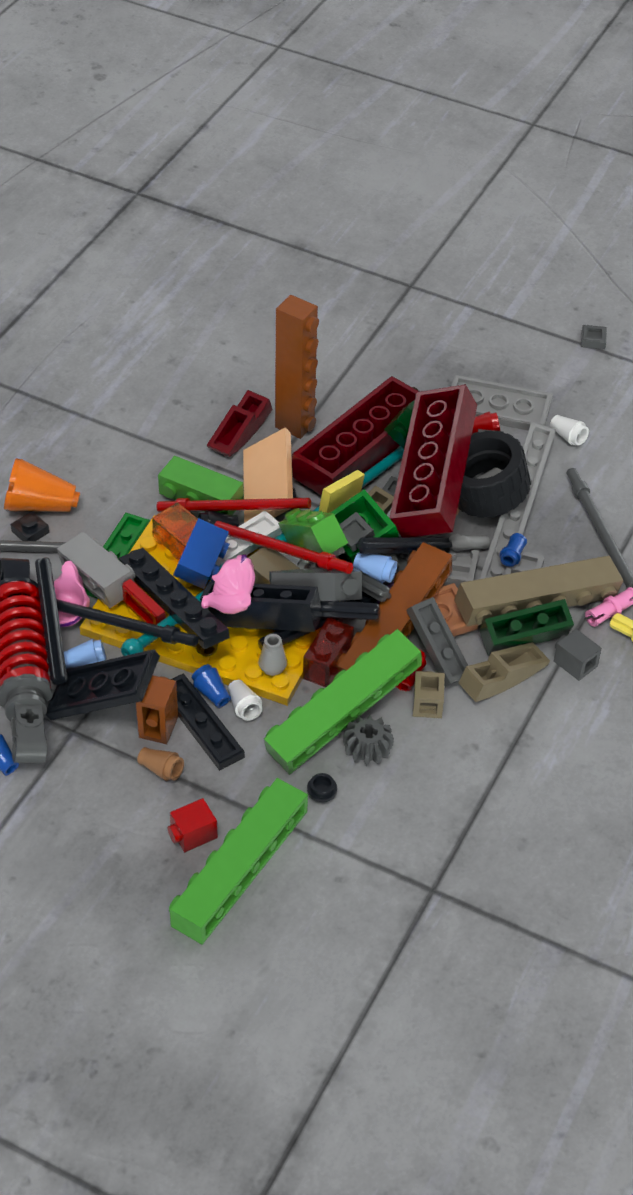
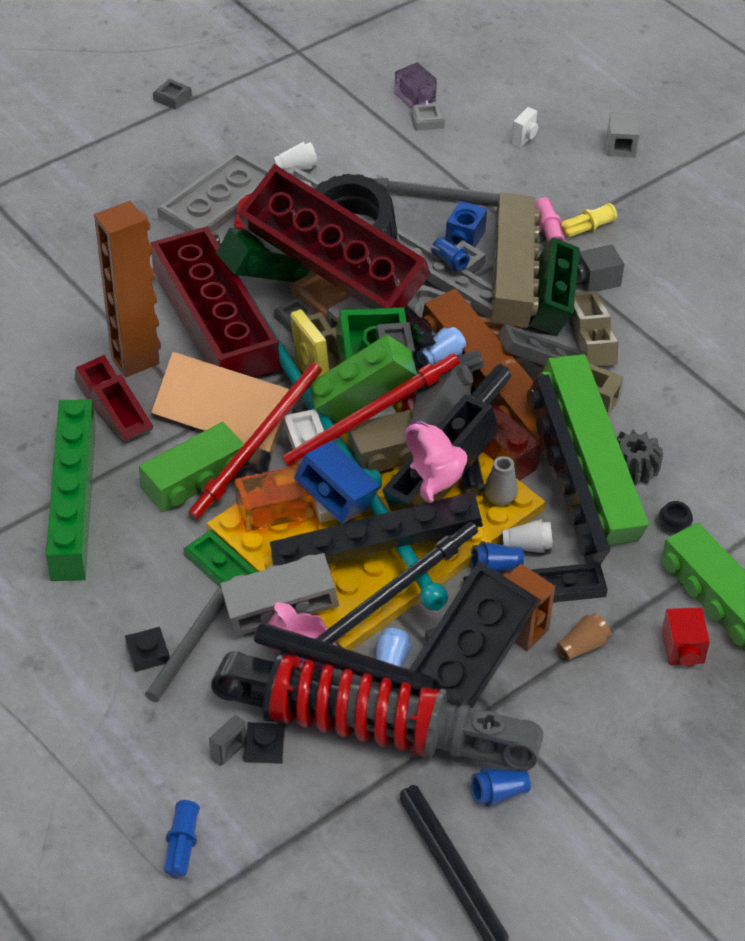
camera: 65 degrees left, 0 degrees up
(38, 490) = (100, 617): orange cone -> none
(141, 434) = (71, 491): none -> green brick
(141, 603) = (367, 568): red tile -> none
(253, 735) = (569, 473): none -> black plate
(563, 549) = (466, 224): none -> blue brick

